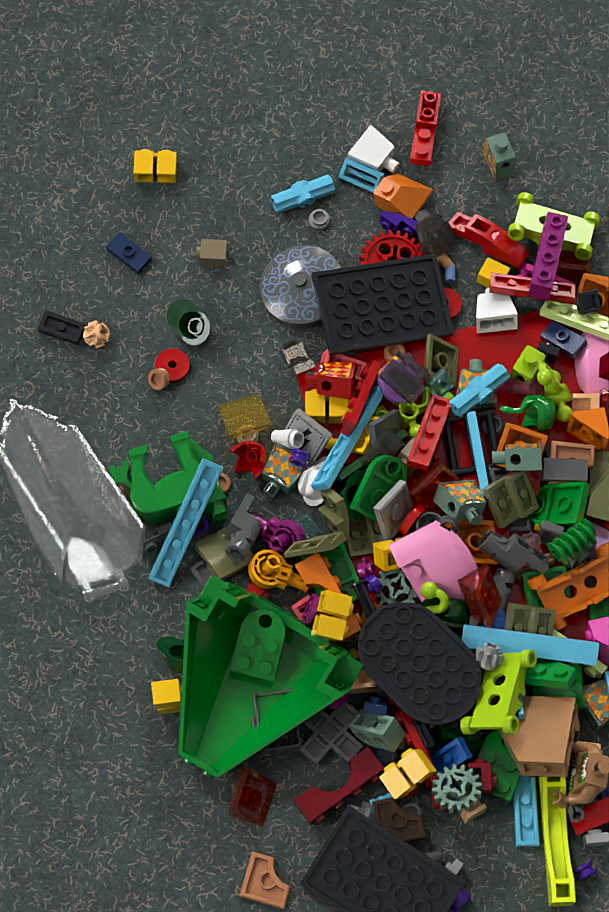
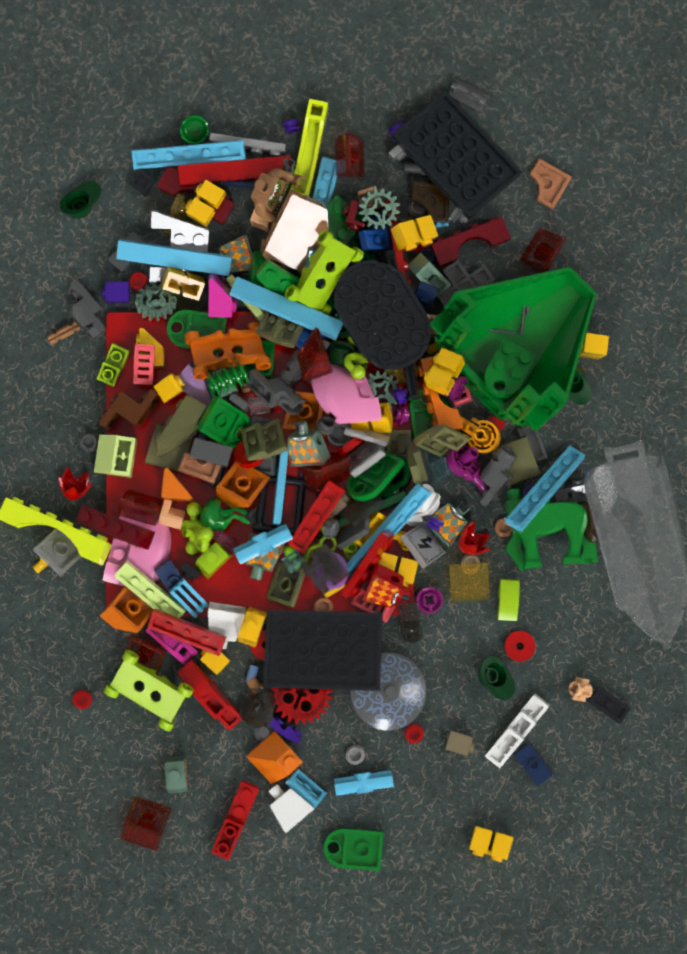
camera: 160 degrees left, 15 degrees up
(154, 281) = (517, 730): none -> white slope
(158, 379) = (535, 634): nougat tile -> none
(196, 407) = (508, 599): none -> lime slope
(263, 253) = (413, 733): none -> red plate
(282, 386) = (429, 600): none -> magenta wheel
(289, 438) = (436, 545): white cone -> none
(293, 131) = (356, 849): none -> green plate
(393, 530) = (367, 435): none -> light grey piece
(410, 423) = (331, 528): none -> dark grey tile
(465, 309) = (252, 626): none -> yellow torso
(489, 656) = (323, 304): light grey gear -> none
(506, 851) = (349, 156): none -> clear red slope
(515, 106) = (145, 823): none -> clear red slope
(529, 457) = (246, 470): sand green torso -> none
(542, 321) = (199, 608): none -> medium azure tile
(547, 256) = (166, 653): magenta brick -> none
(587, 301) = (142, 604): black plate -> none

